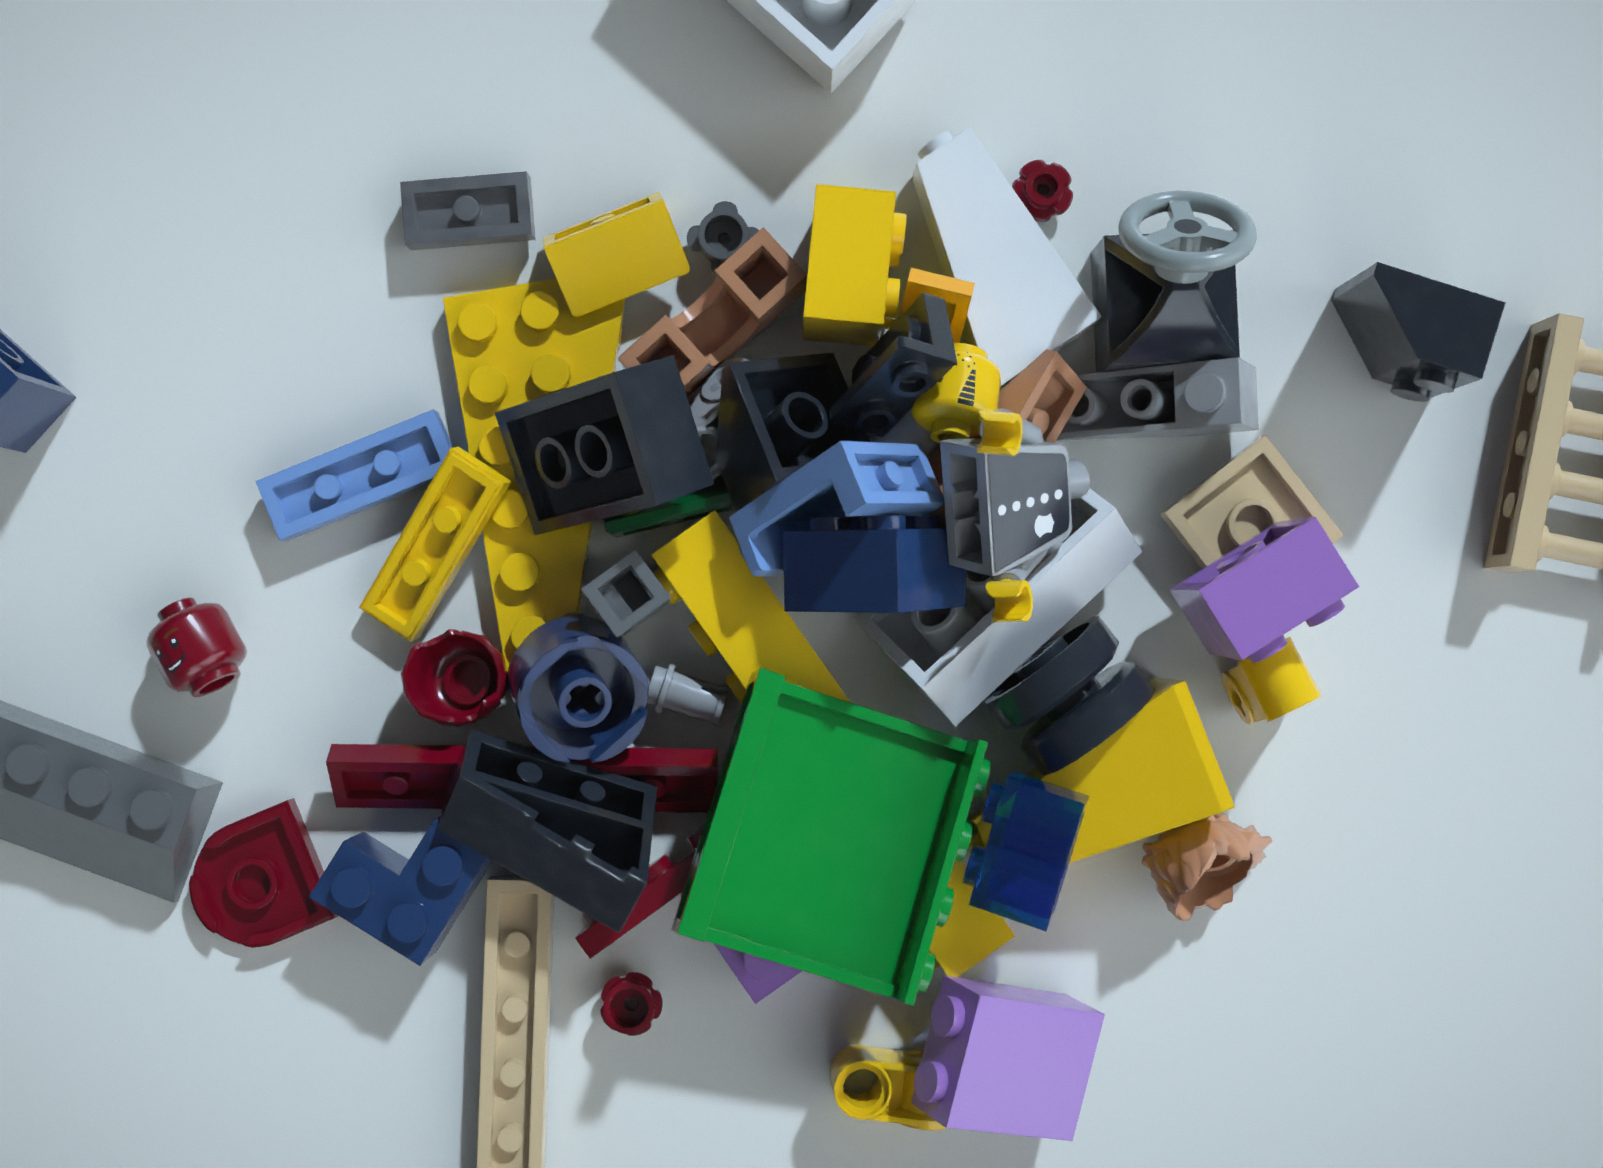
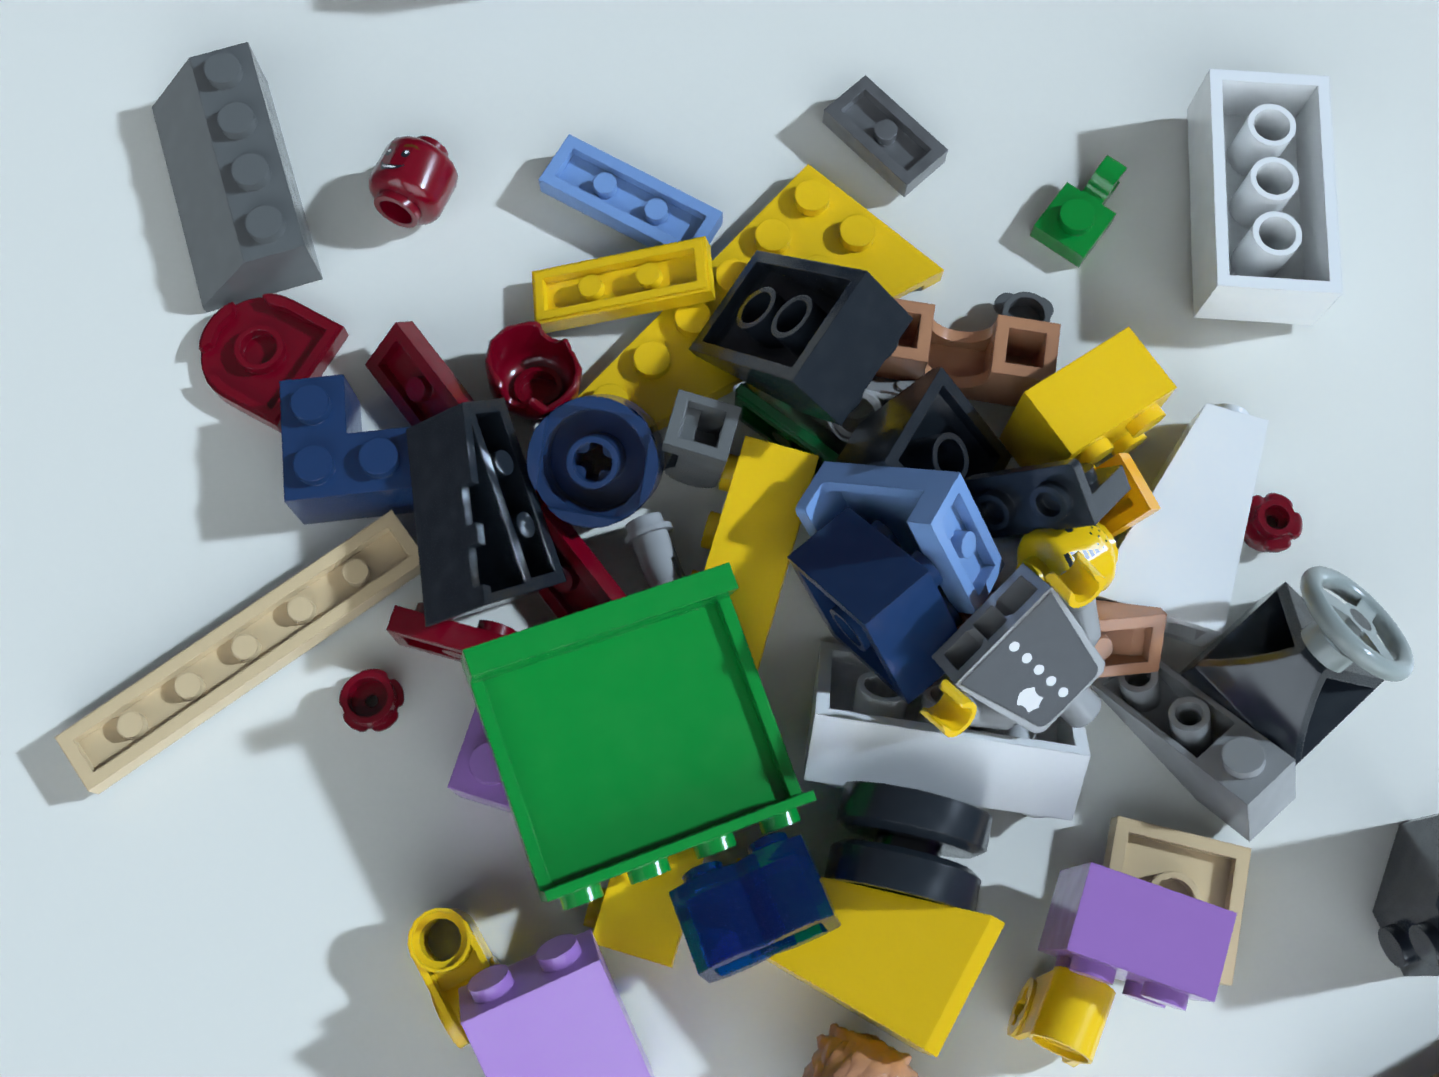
camera: 55 degrees right, 15 degrees down
(616, 254) = (943, 252): yellow panel -> none
(670, 111) = (1078, 217): none -> green plate

